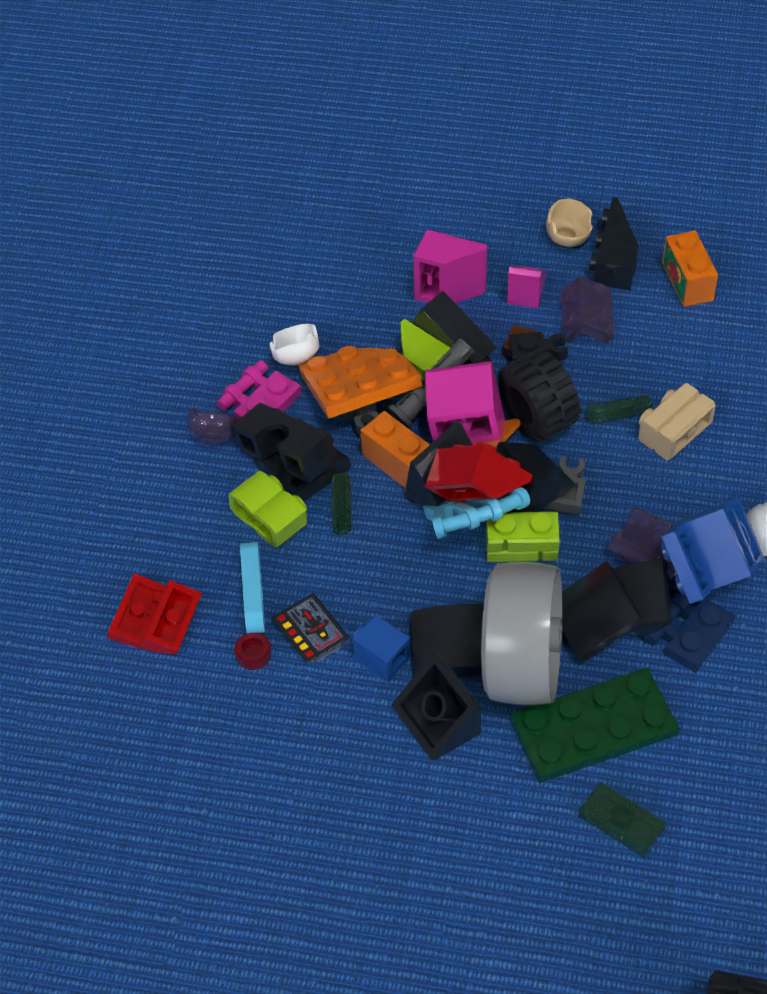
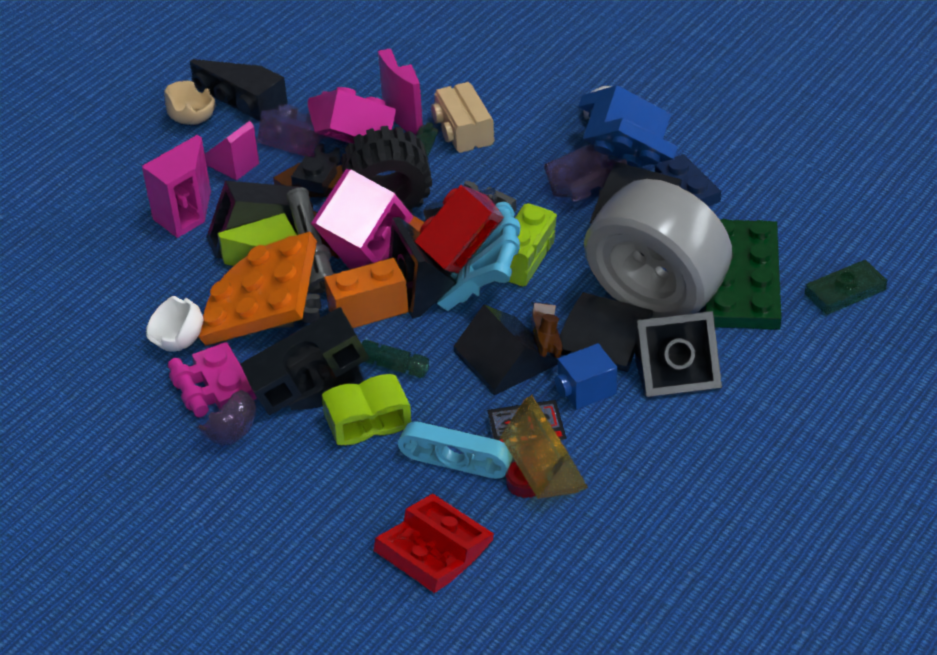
camera: 65 degrees left, 10 degrees down
(268, 652) = (541, 453): none -> clear yellow slope
(392, 577) = (501, 350): none -> black slope
(422, 595) = (545, 329): none -> reddish brown piece
(603, 340) = (345, 115): none -> dark pink slope
(666, 356) = (401, 91): none -> dark pink slope
(689, 268) = (304, 52): orange brick -> none

